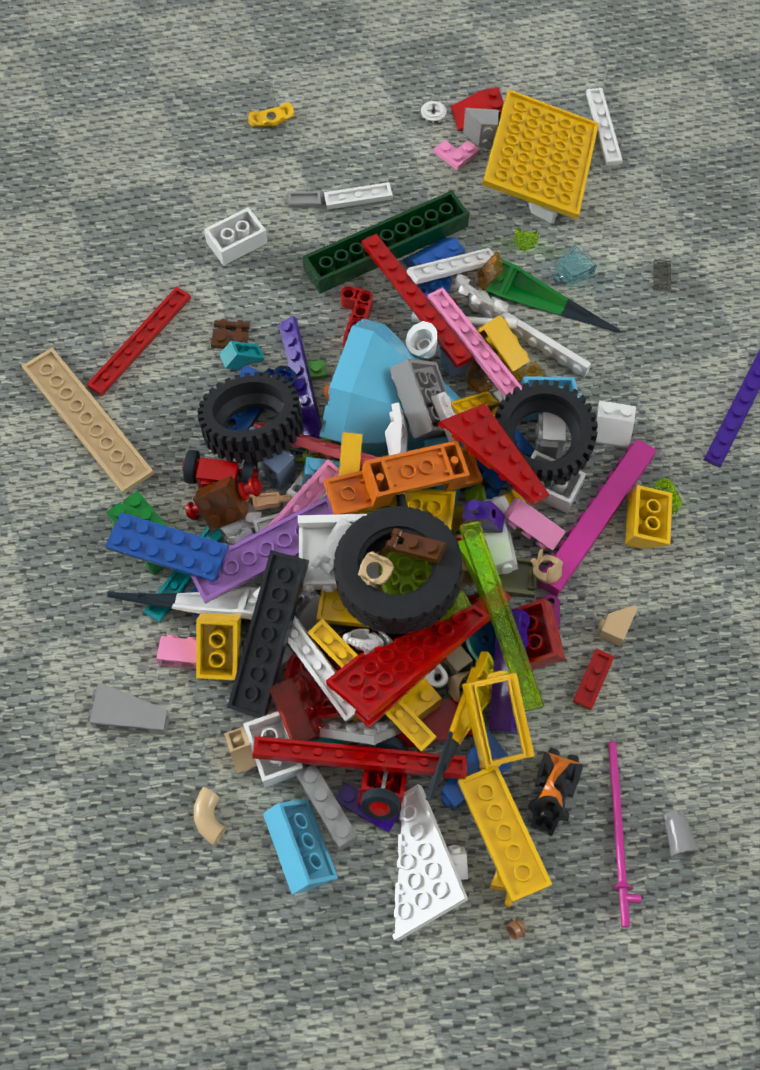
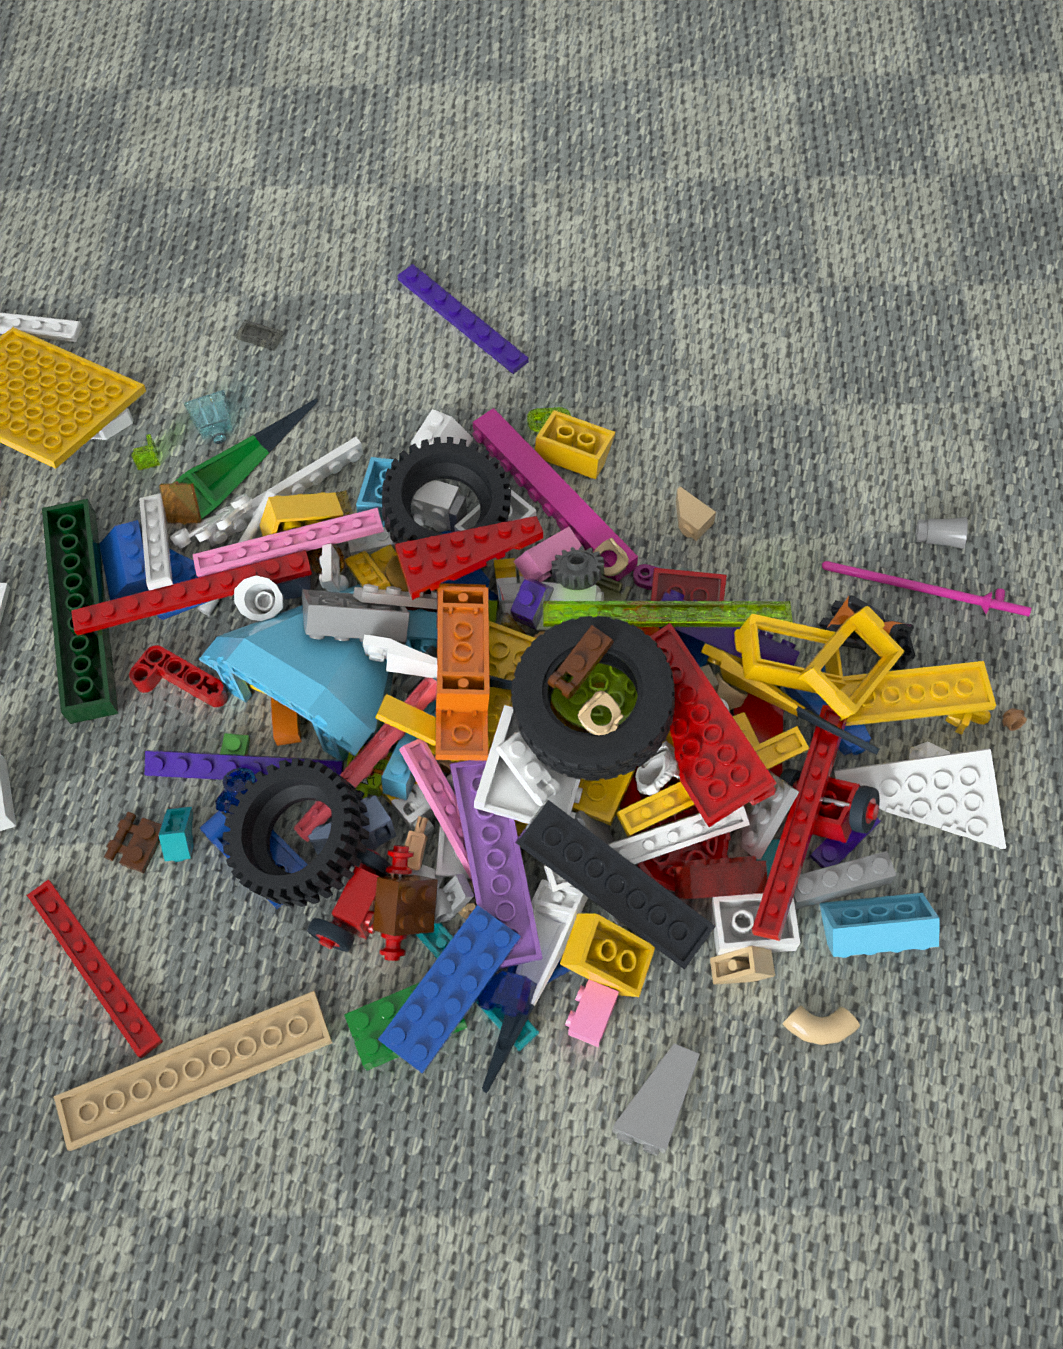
camera: 70 degrees left, 0 degrees up
(174, 588) = (509, 993): none -> clear blue slope
(463, 379) = (330, 574): none -> white plate
(521, 541) = (578, 568): none -> dark grey gear
(543, 776) = (870, 629): none -> yellow piece
(593, 679) = (748, 559): red plate -> none

